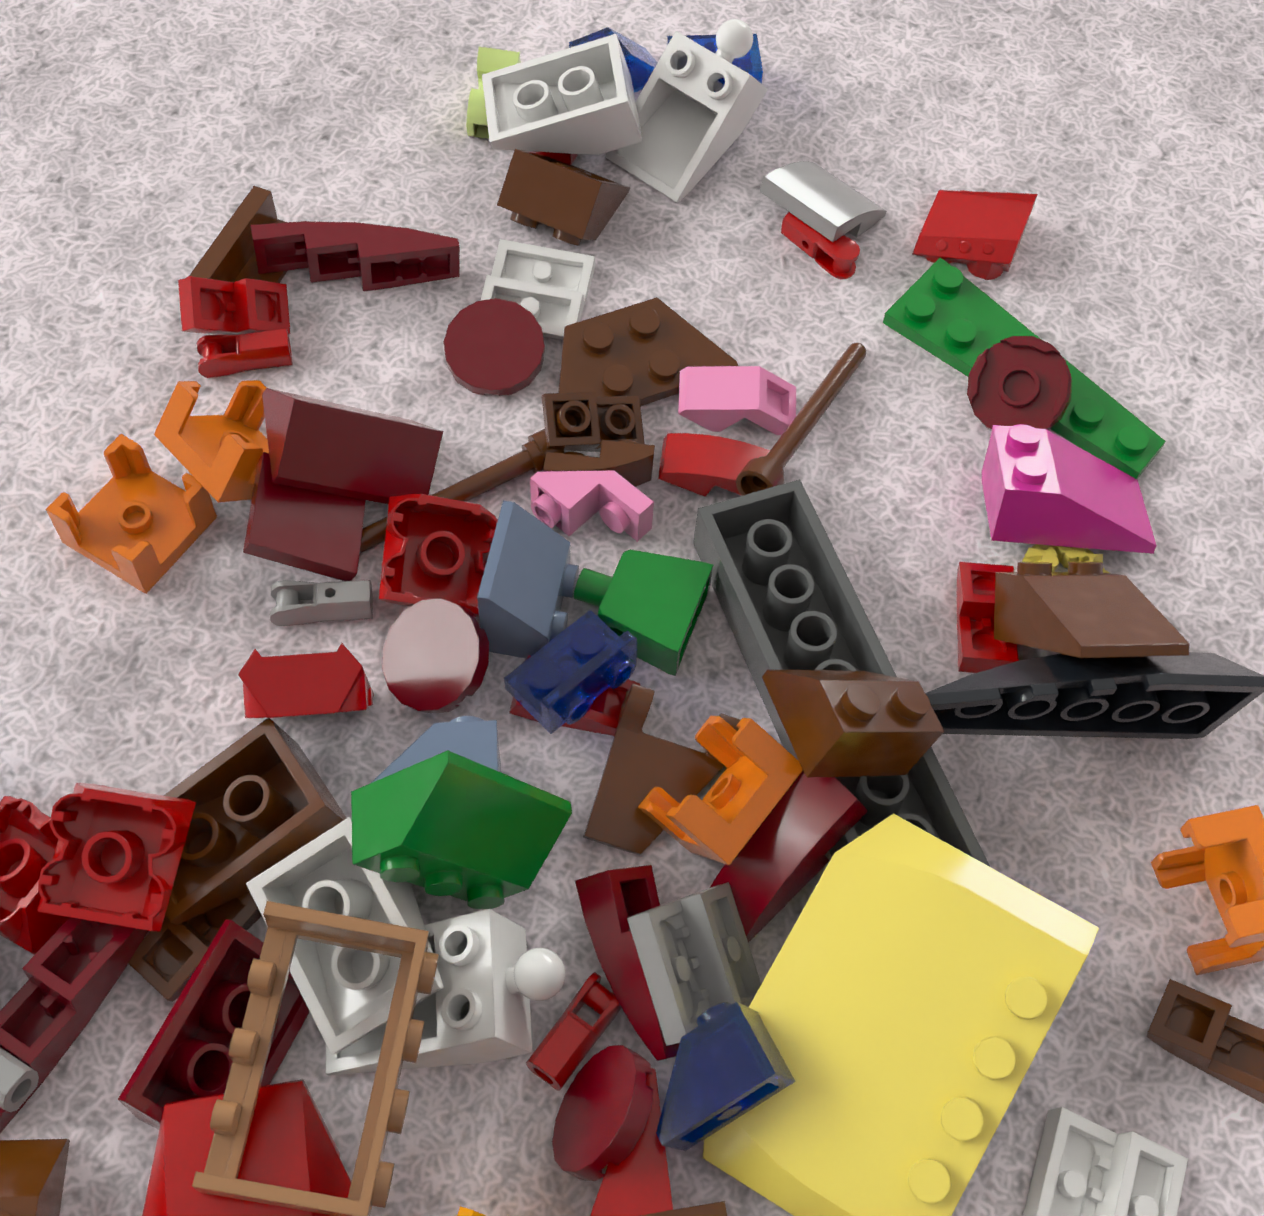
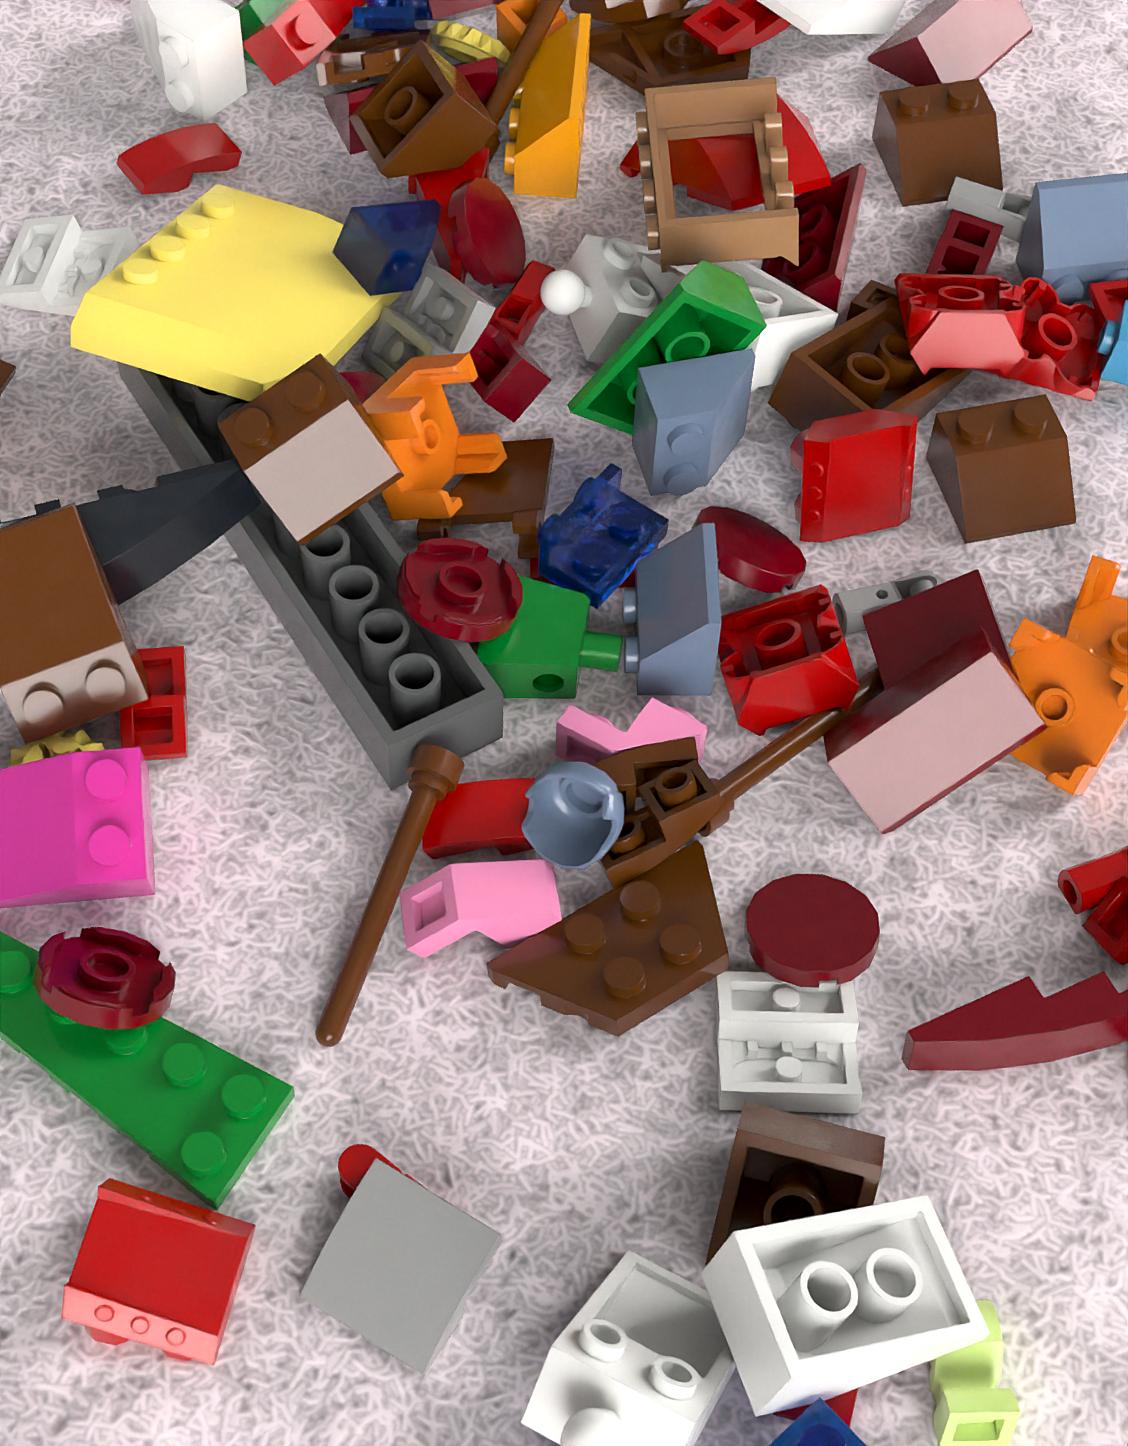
camera: 170 degrees right, 5 degrees down
(150, 717) = (1003, 468): none -> reddish brown slope
(655, 416) = (573, 814): none -> sand blue hair
(719, 606) = (459, 590): none -> dark red tile

